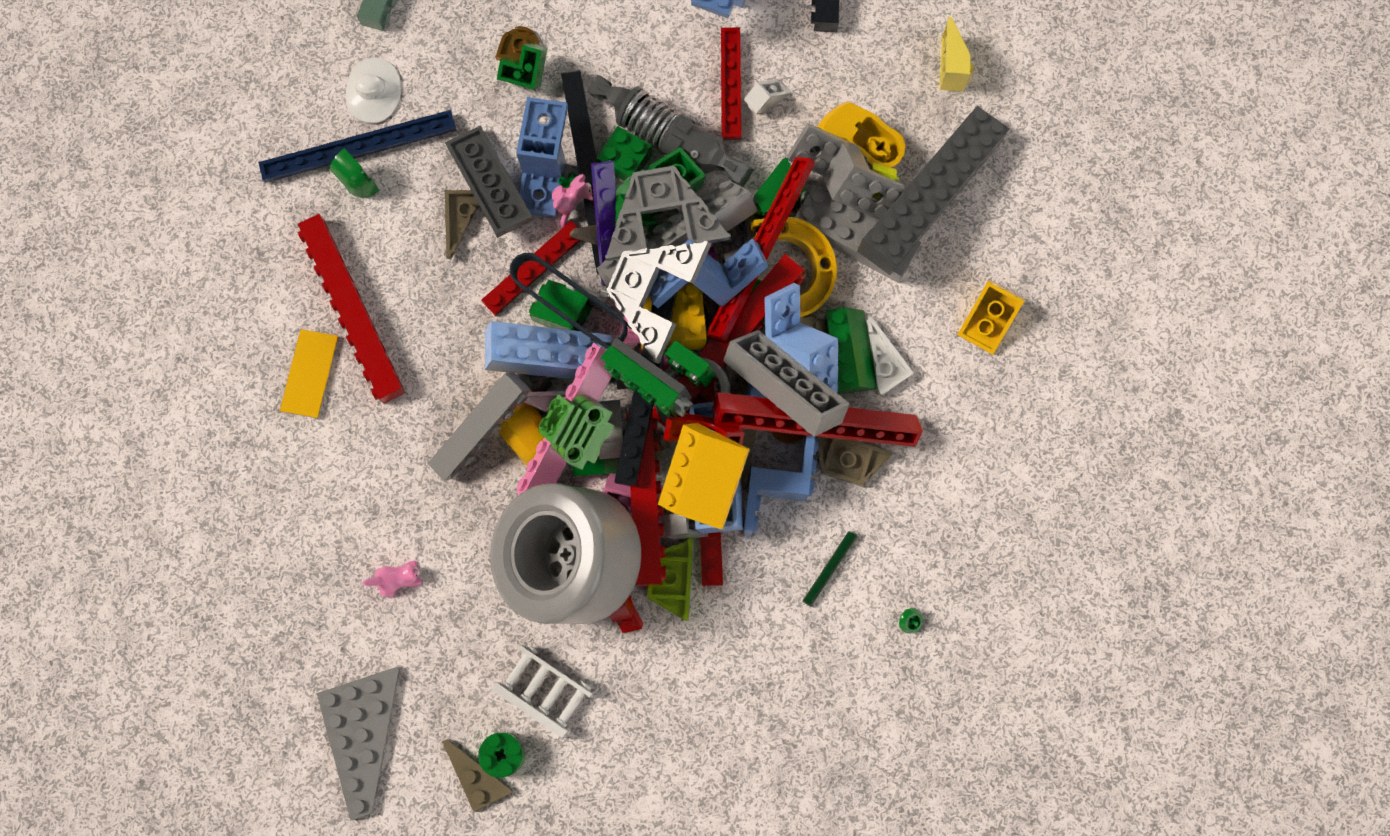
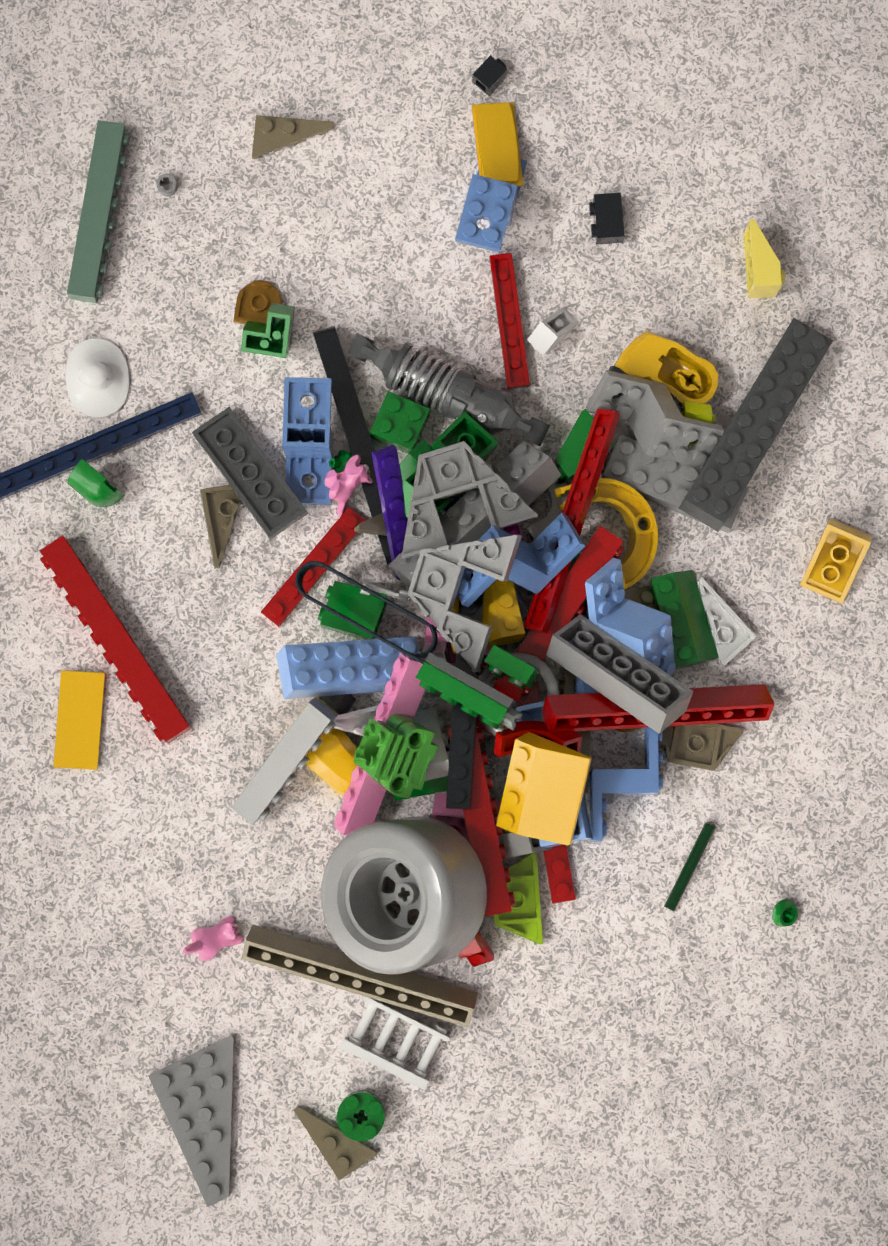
camera: 10 degrees left, 5 degrees up
(501, 620) = (339, 971): none -> dark tan brick

